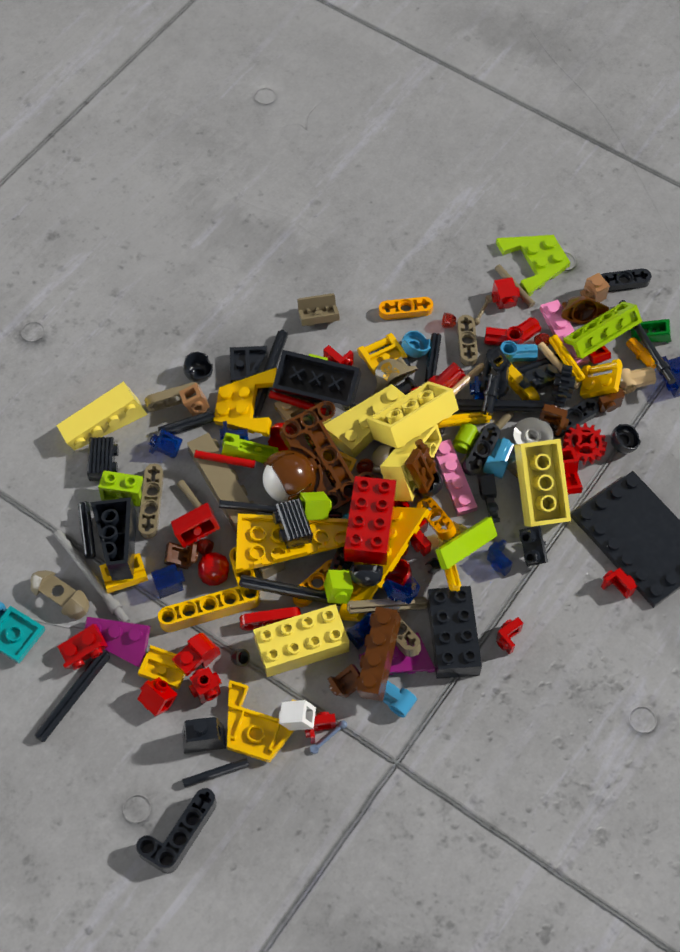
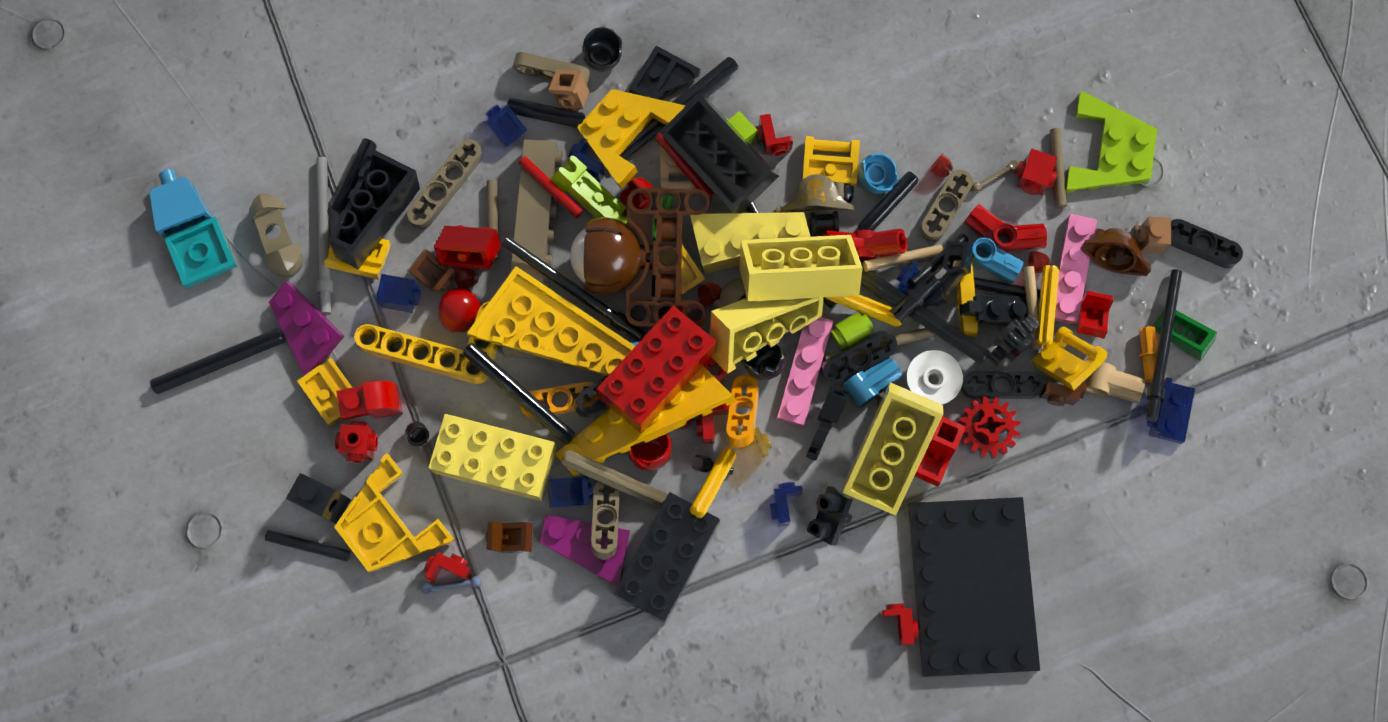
camera: 35 degrees right, 15 degrees up
(82, 646) = (258, 314): red bracket -> none
(101, 457) = (422, 99): black brick -> none
(102, 416) = (454, 47): light yellow wedge -> none
(120, 485) = (418, 148): lime bracket -> none
(157, 696) = (298, 421): red brick -> none
(181, 828) = (231, 585): black beam -> none
(259, 619) = (478, 409): red beam -> none
(292, 523) = (565, 318): black brick -> none
(297, 715) = (424, 544): white brick -> none
(316, 505) = (608, 310): lime brick -> none
(318, 309) = (792, 58): dark tan bracket -> none
(338, 586) = (570, 424): lime brick -> none
(366, 575) = (609, 430): black hair -> none
(378, 654) = (557, 533): reddish brown brick -> none
(399, 700) = (551, 593): dark azure piece -> none
(402, 593) = (636, 475): clear blue bracket -> none
(411, 302) = (905, 129): light orange beam -> none
(421, 466) = (760, 340): reddish brown plate -> none
(466, 543) = (752, 464): lime tile -> none
(509, 630) = (732, 596): red bracket -> none
(555, 416) = (974, 369): reddish brown bracket -> none
(603, 329) = (1120, 299): lime fence -> none
(625, 438) = (1042, 452): black hair -> none

